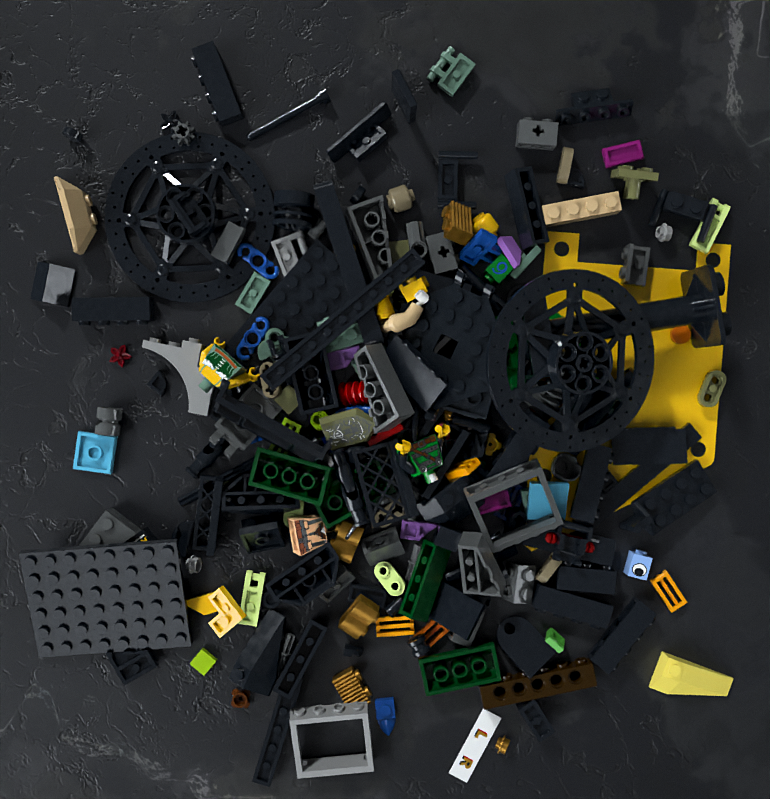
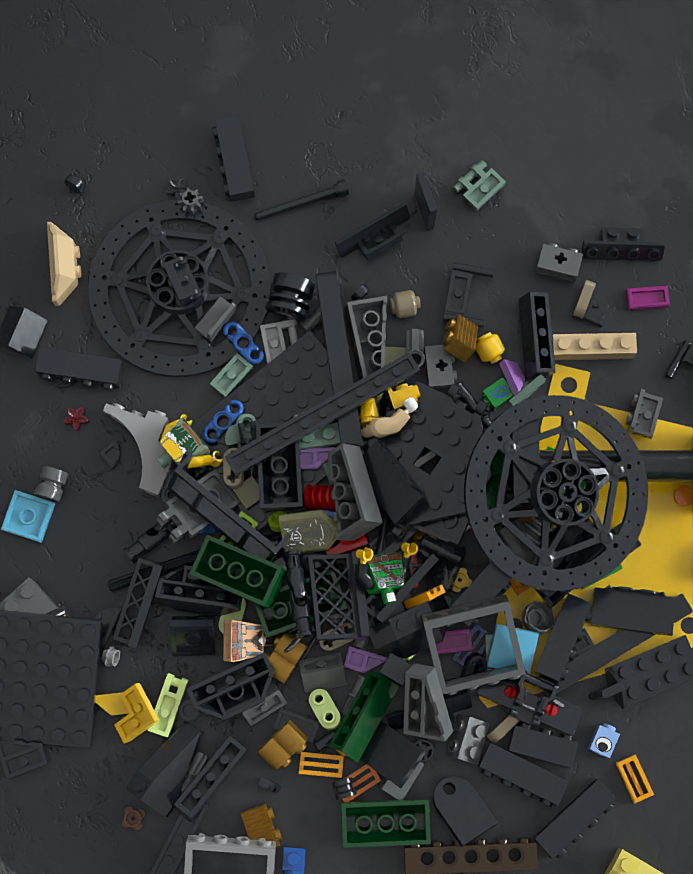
camera: 10 degrees right, 10 degrees down
(203, 661) = (99, 769): lime tile -> none
(479, 248) = (479, 368): blue hinge -> none
(555, 640) = (498, 811): bright green tile -> none
(633, 179) = (654, 323): olive plate -> none
(664, 232) = (680, 385): light grey plate -> none

